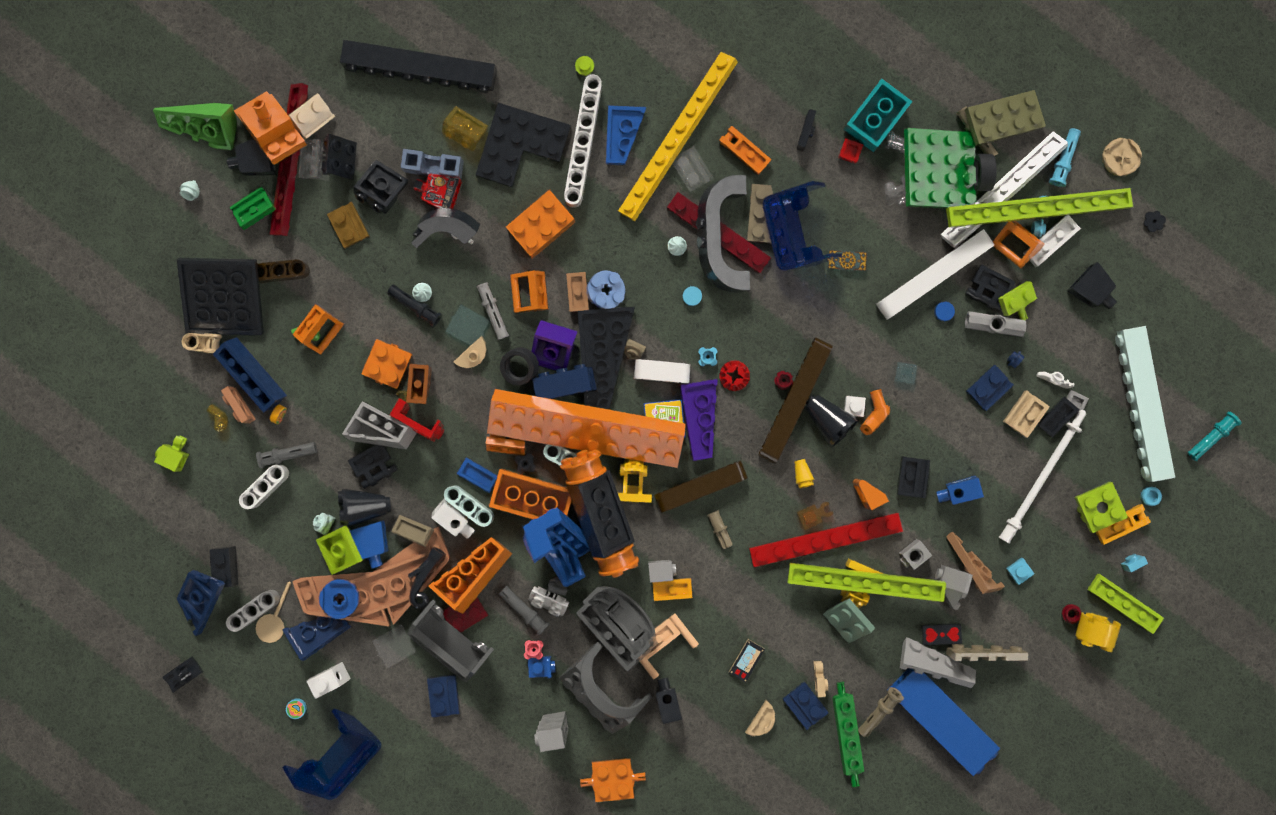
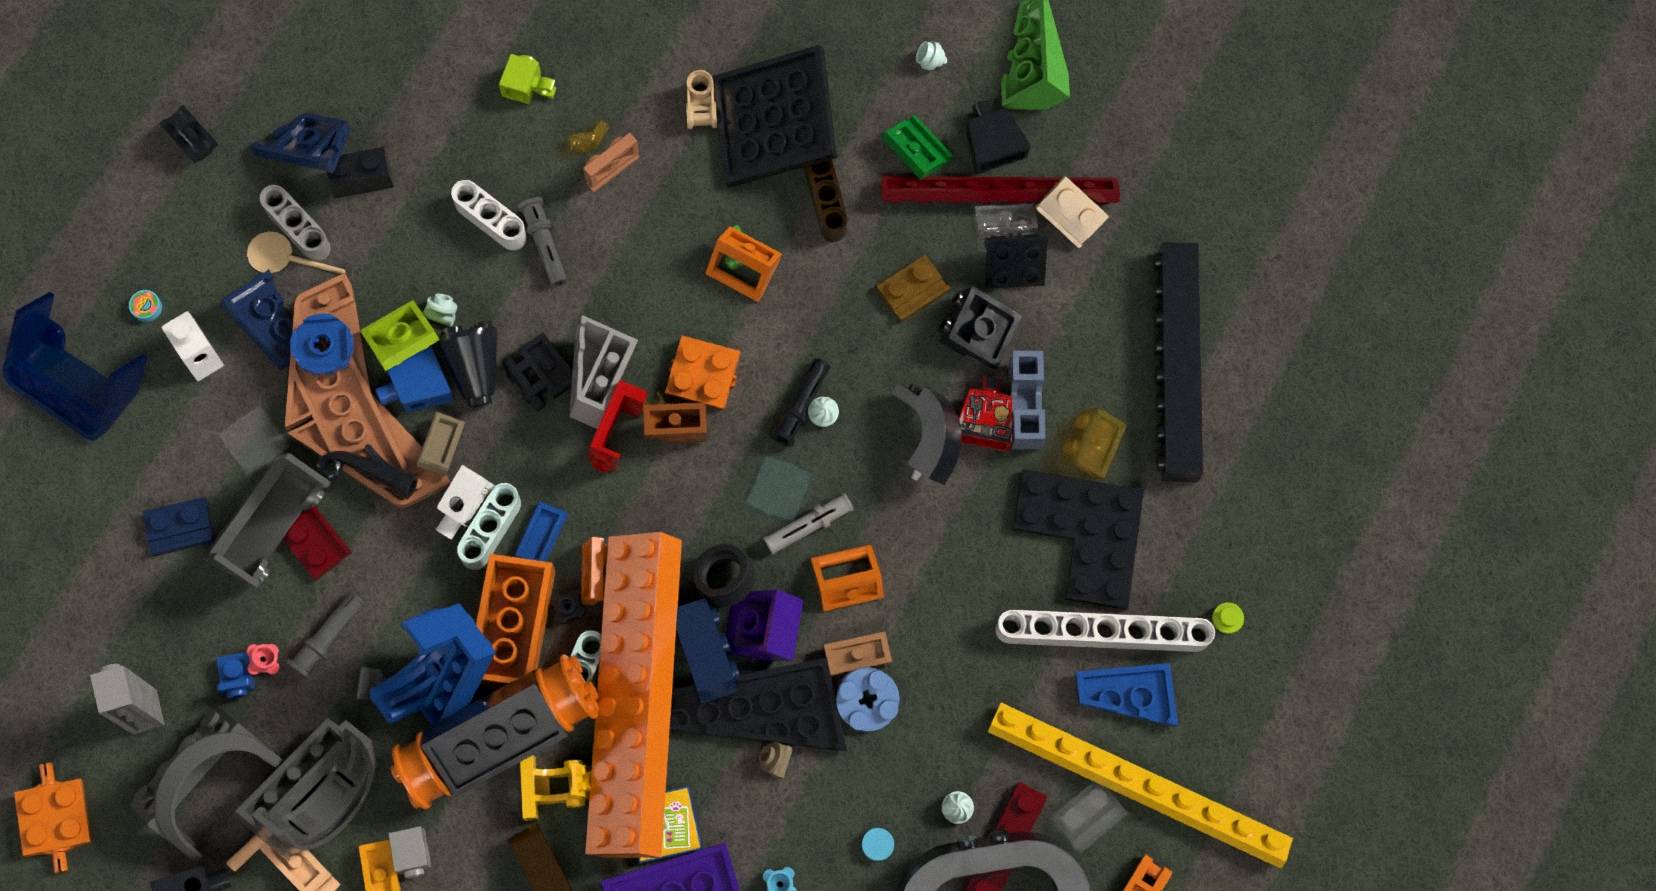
camera: 80 degrees right, 15 degrees down
(249, 374) = (660, 173): dark blue brick -> none
(270, 127) = (1042, 154): orange brick -> none
(278, 414) = (604, 221): light orange tile -> none
(471, 575) = (376, 542): orange wedge -> none
(473, 355) = (733, 502): tan plate -> none
(539, 599) = (344, 655): white hinge -> none
(540, 224) = (958, 580): orange brick -> none
(662, 371) = (744, 810): white beam -> none

